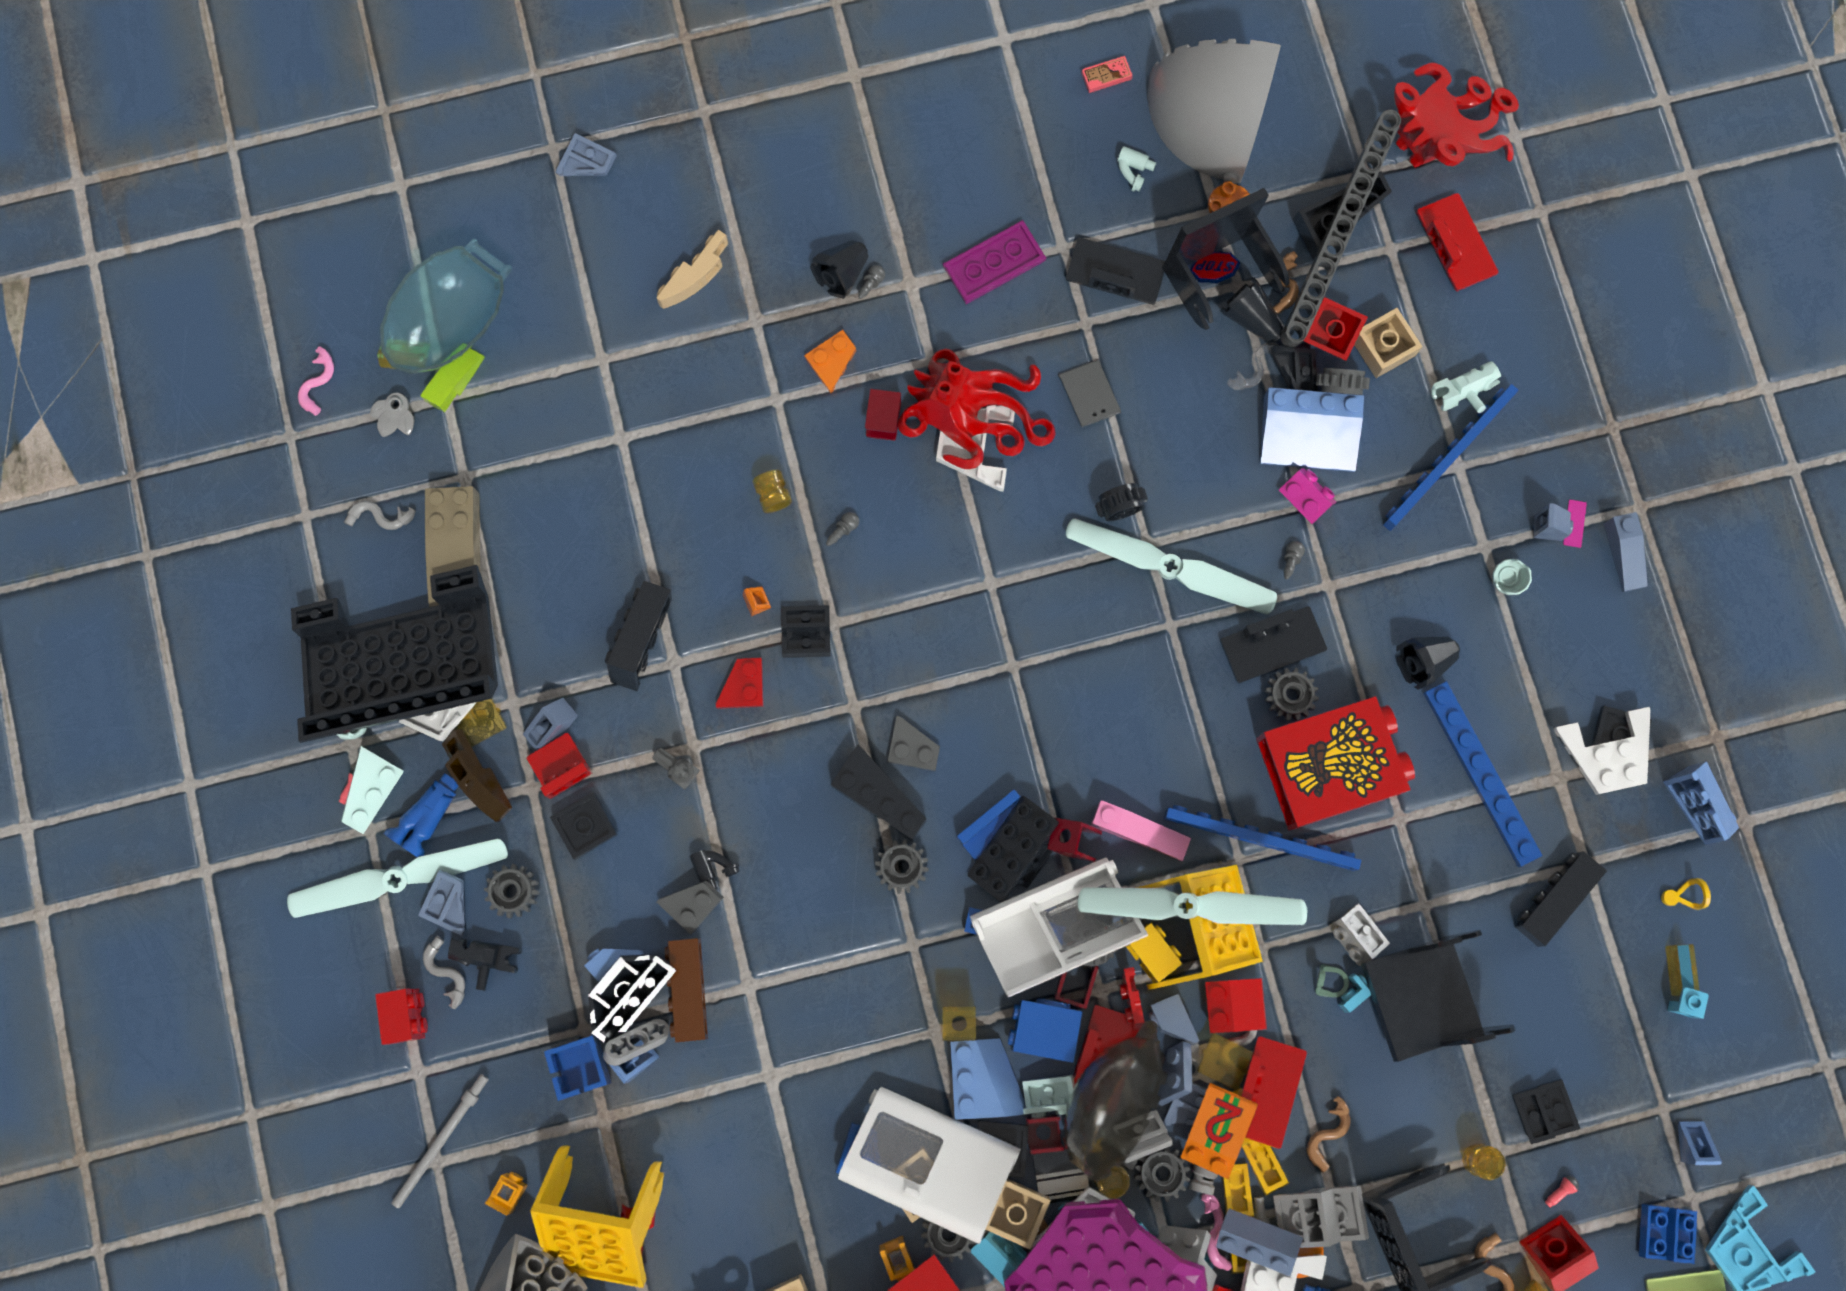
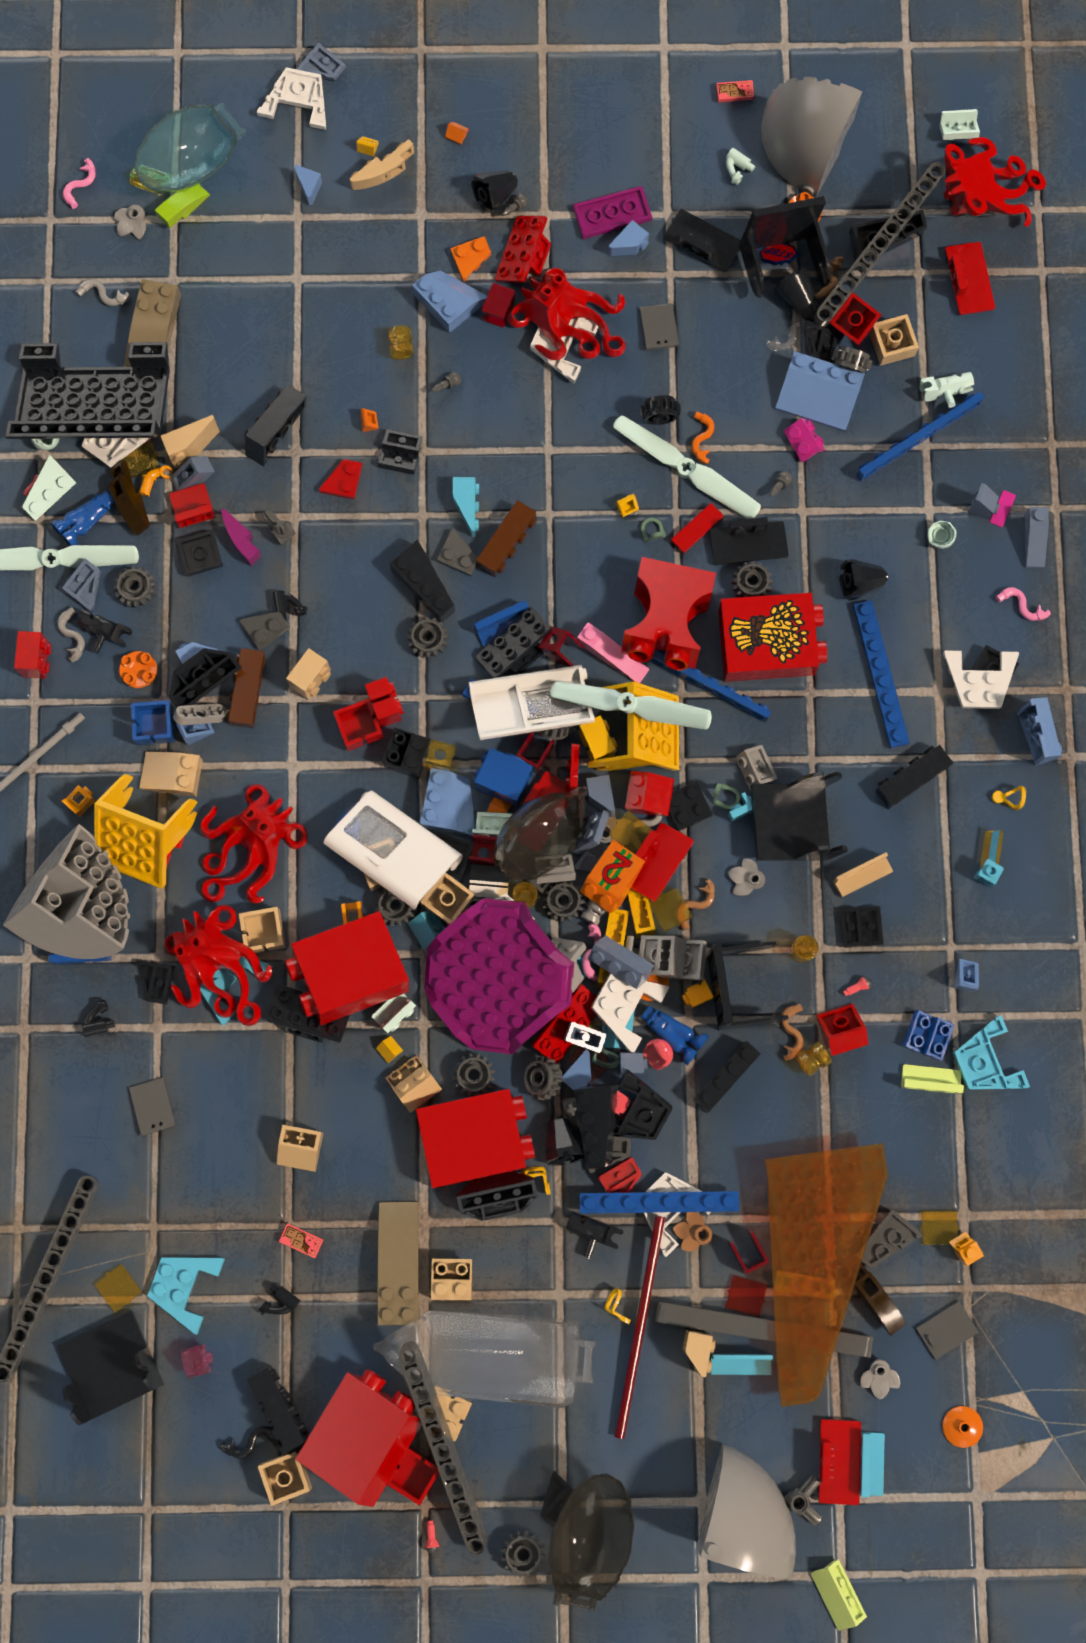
camera: 10 degrees right, 0 degrees up
(496, 743) = (150, 477): none -> light orange piece
(535, 686) = (189, 440): none -> tan slope
(541, 998) = (138, 669): none -> orange dish
(564, 198) = (300, 90): none -> white wing
(606, 312) = (309, 181): none -> medium blue slope
(617, 1126) = (171, 773): none -> tan slope
(631, 794) = (241, 538): none -> magenta slope
(667, 248) = (367, 146): none -> yellow slope
(747, 1174) = (259, 831): none -> red hips
(763, 955) = (309, 674): none -> tan brick
(774, 206) = (456, 132): none -> orange slope
(817, 420) = (447, 298): none -> medium blue wedge
(842, 1005) = (357, 724): none -> red piece
(867, 967) = (384, 704): none -> red piece
(897, 336) = (524, 250): none -> red bracket
(903, 674) = (464, 497): none -> medium azure slope
(912, 1026) = (406, 752): none -> black slope
(969, 712) = (506, 538): none -> reddish brown brick
(1026, 293) = (629, 241): none -> medium blue slope
(1047, 1068) = (498, 806): none -> orange slope
(1109, 632) = (627, 505): none -> yellow slope
(1142, 670) = (657, 535): none -> sand green piece
(1183, 546) = (701, 455): none -> orange animal
(1197, 746) = (671, 599): none -> red brick
(1203, 641) = (697, 528): none -> red tile
(1287, 1006) = (688, 807): none -> black plate
(1301, 1150) = (671, 910): none -> clear yellow piece
(1363, 1256) = (697, 994): none -> light orange window
(1380, 1082) = (743, 878): none -> light grey plate
(1393, 53) = (959, 124): none -> light aqua bracket
(1529, 1043) = (862, 875): none -> tan panel
(1613, 628) = (1011, 591): none -> bright pink animal

